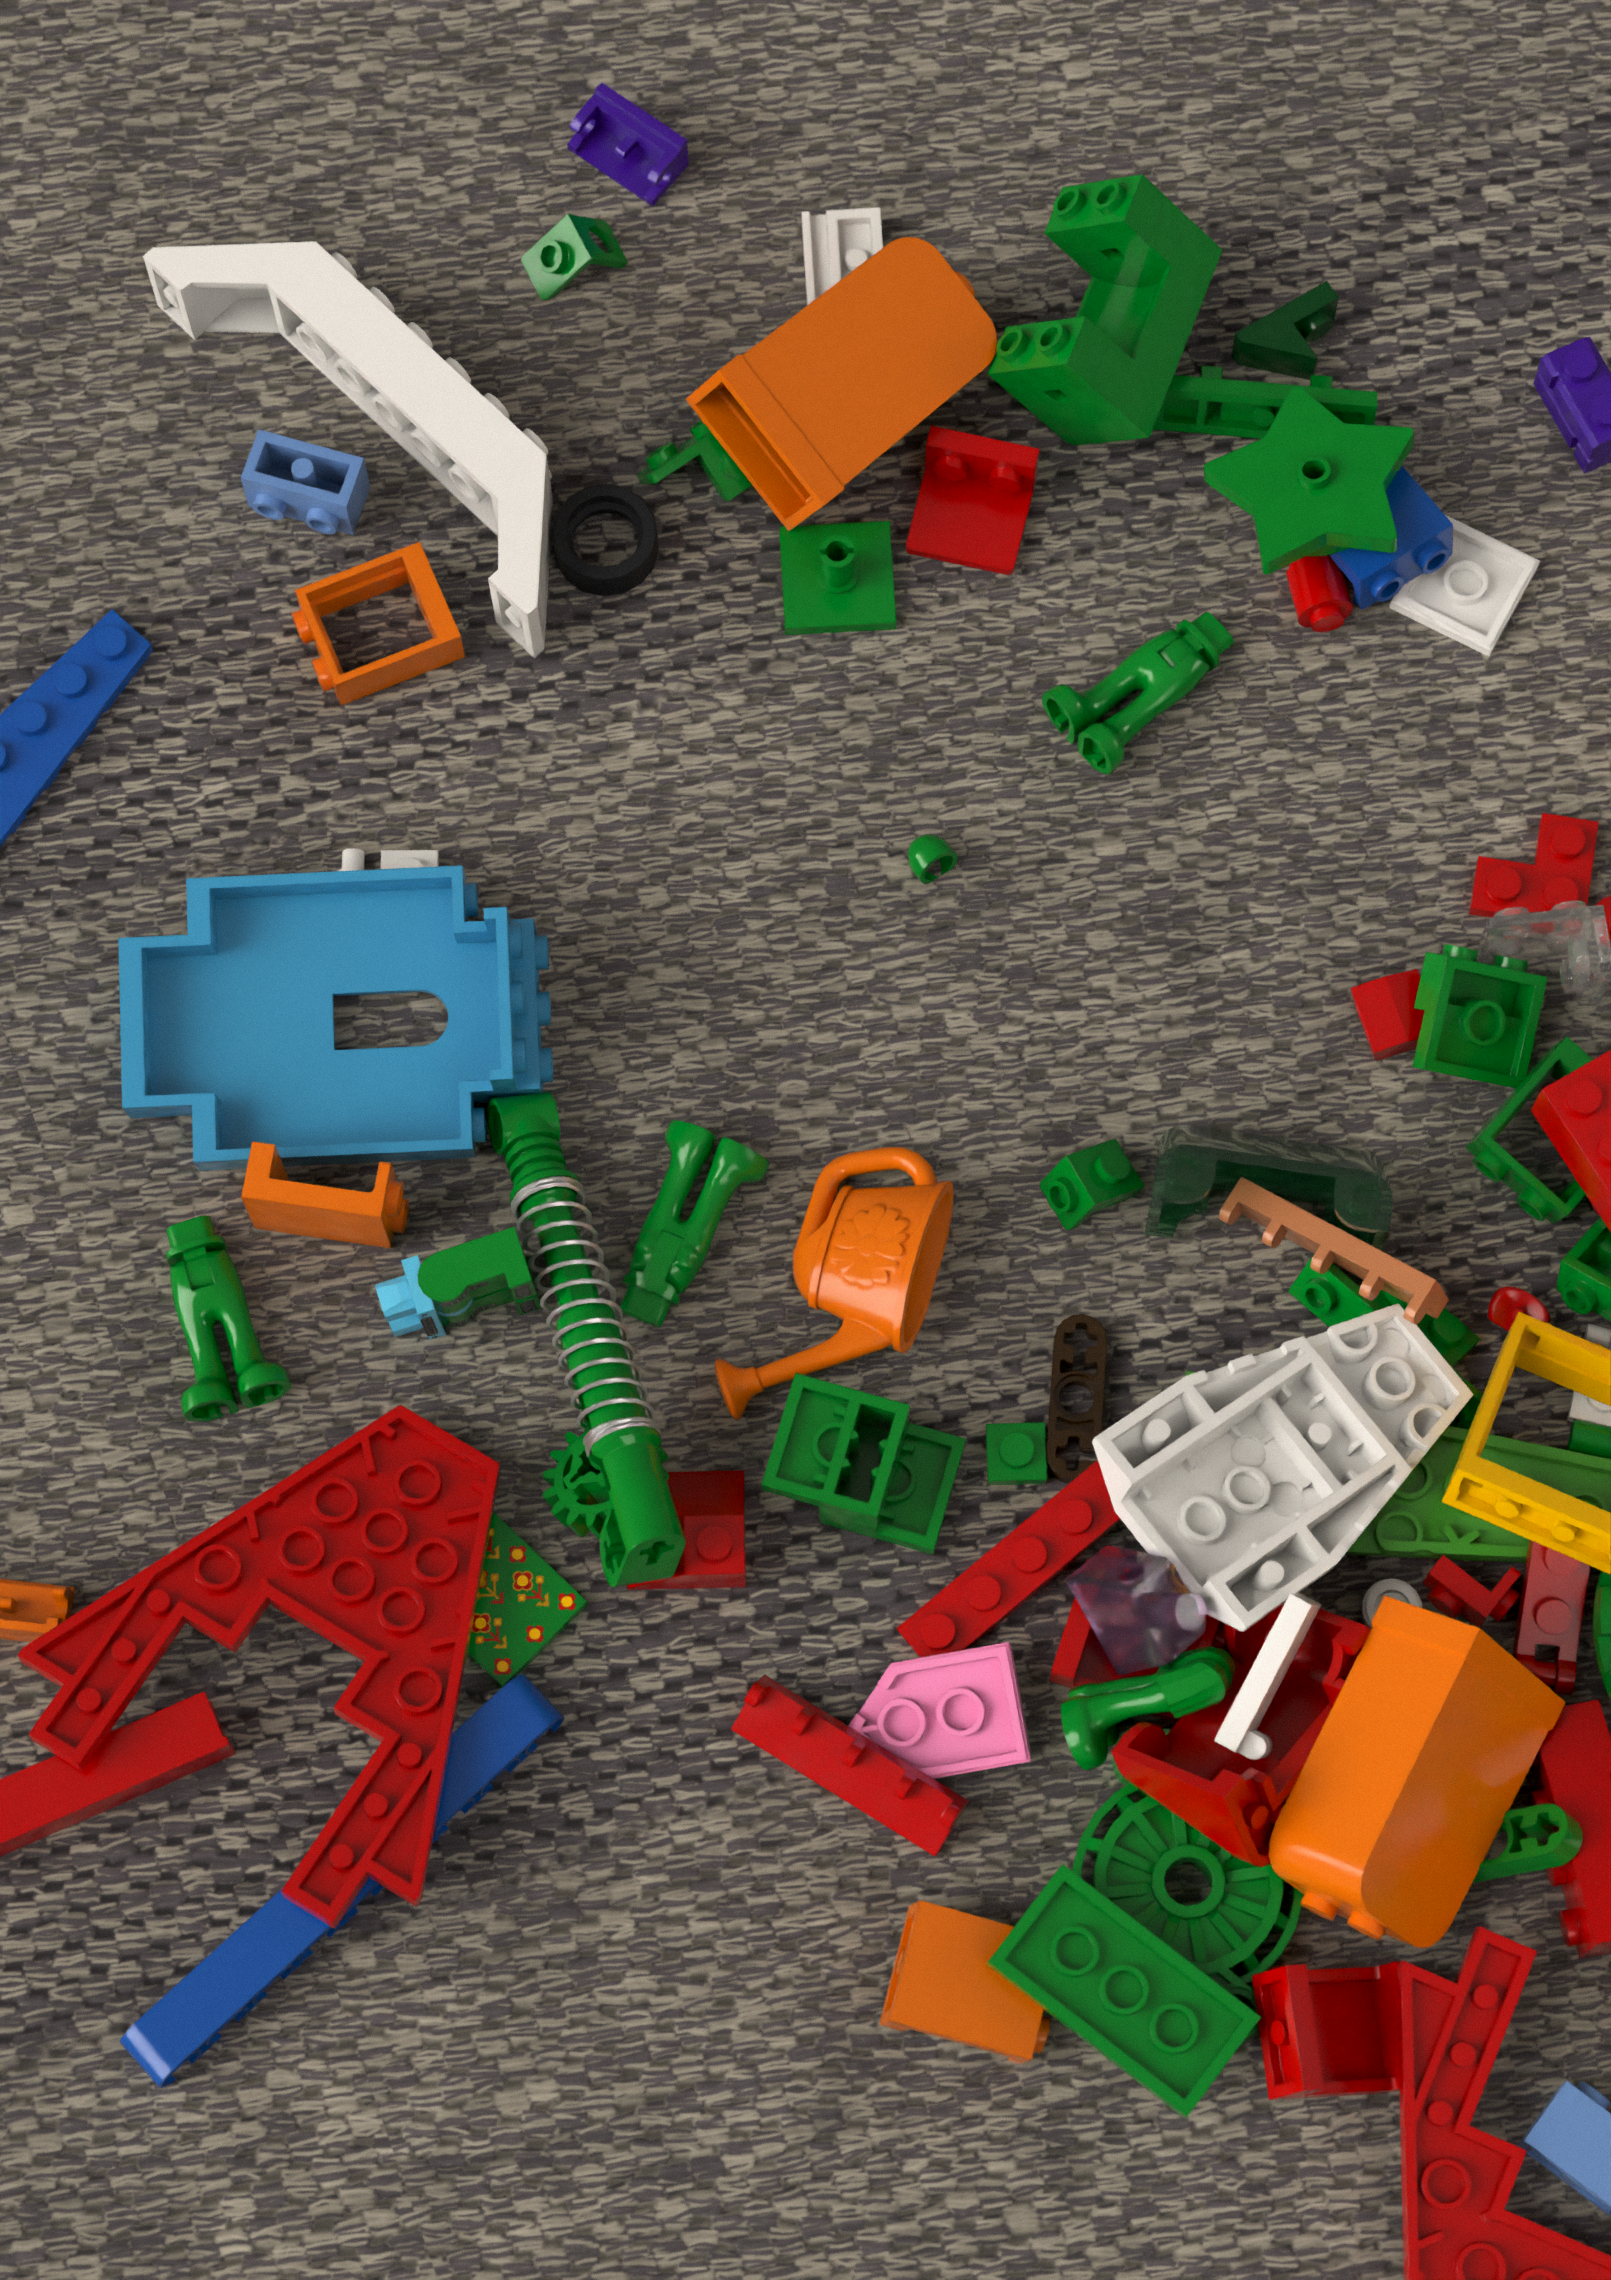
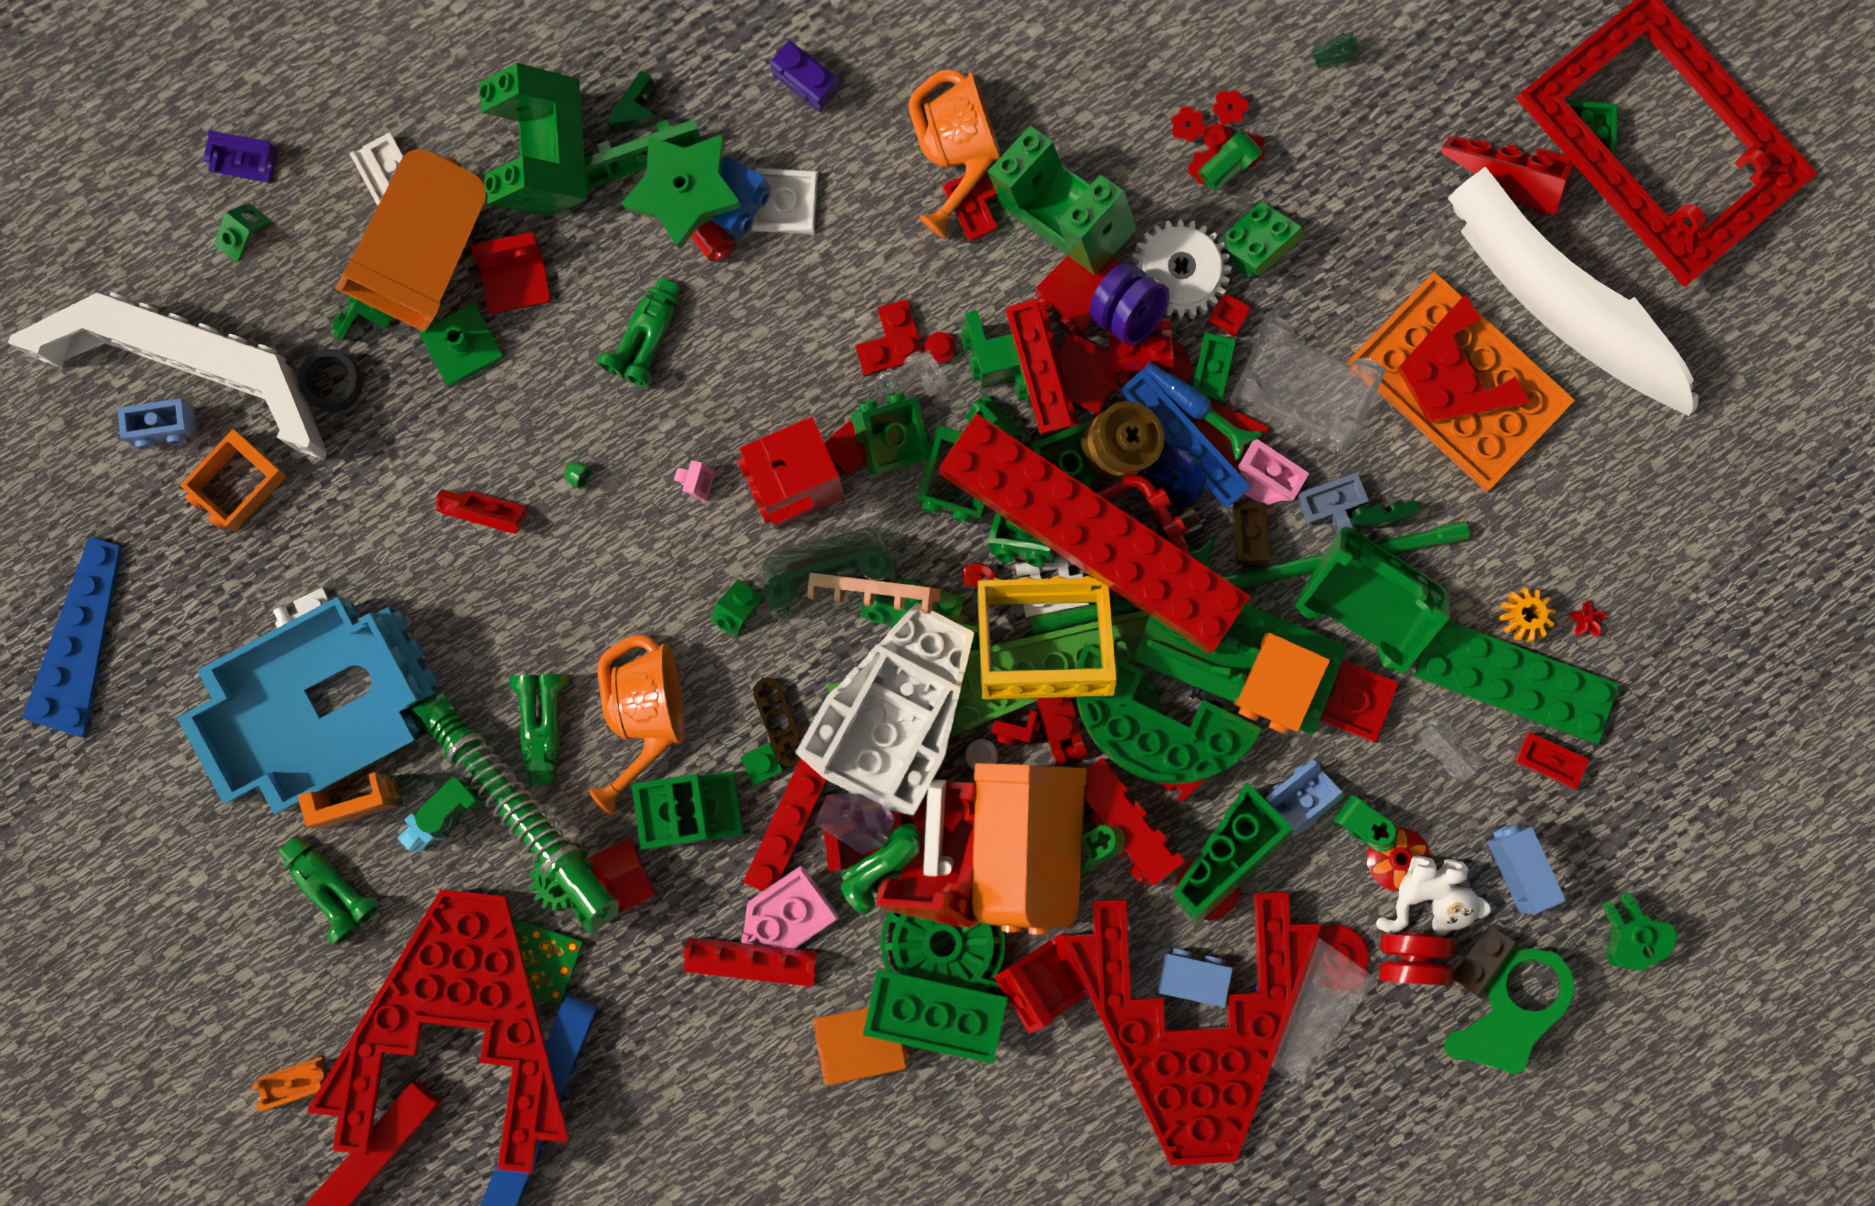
camera: 25 degrees left, 10 degrees up
(750, 843) = (482, 510): none -> red hinge
(1120, 951) = (696, 480): none -> bright pink tile
(1289, 998) = (790, 473): none -> red piece

